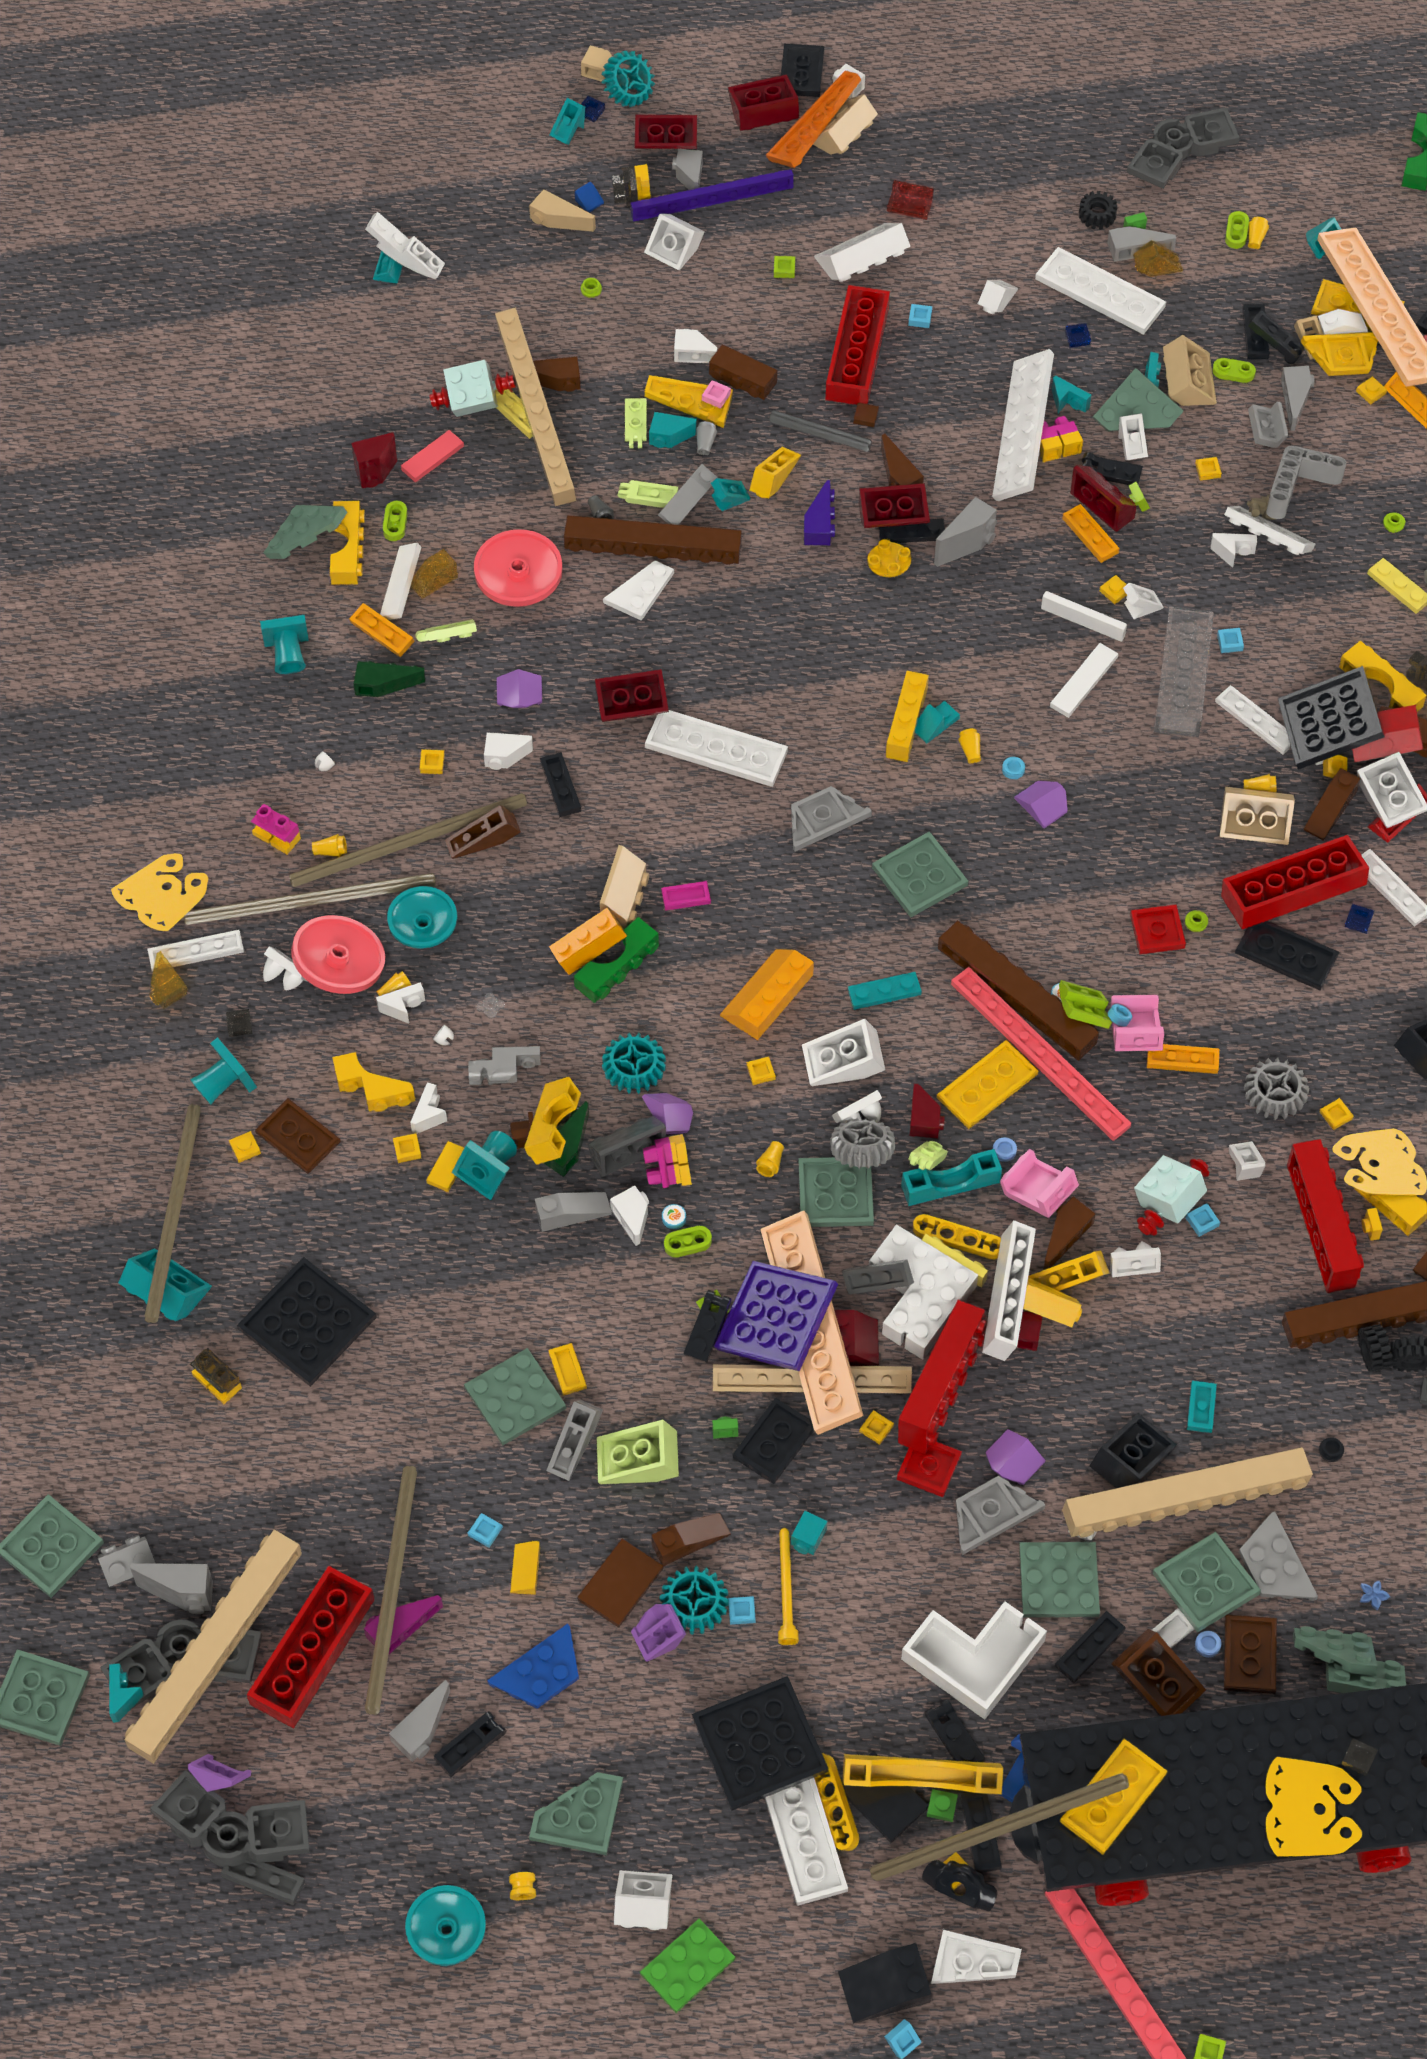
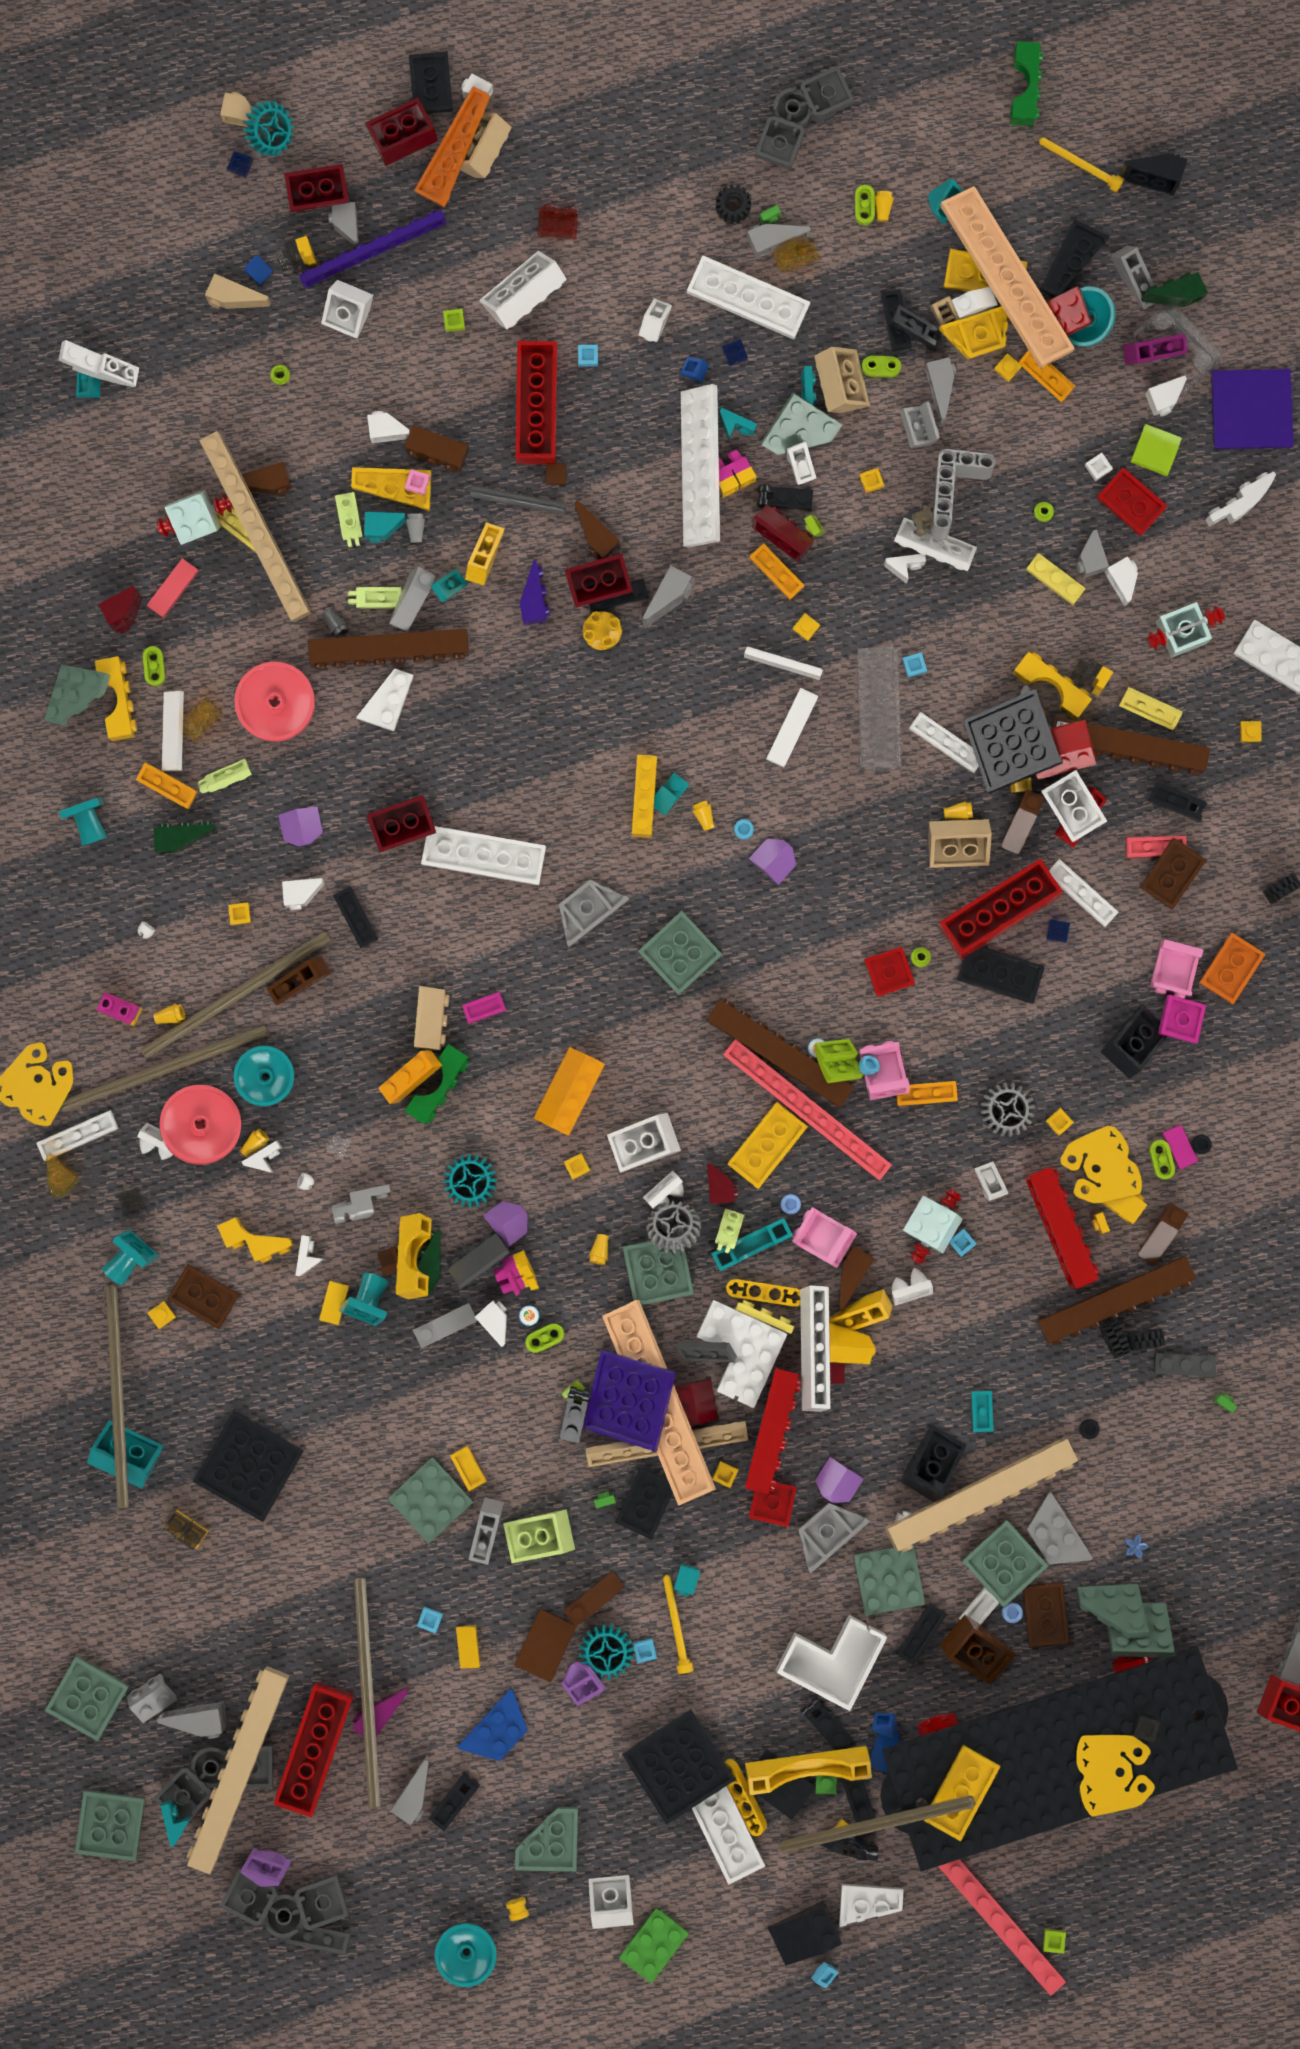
camera: 15 degrees left, 25 degrees up
(407, 1148) = (297, 1293): yellow plate -> none
(570, 117) = (221, 187): teal slope -> none
(884, 990) = (667, 1071): teal plate -> none
(1032, 344) = (694, 369): none -> blue slope
(1141, 600) = (832, 637): white slope -> none

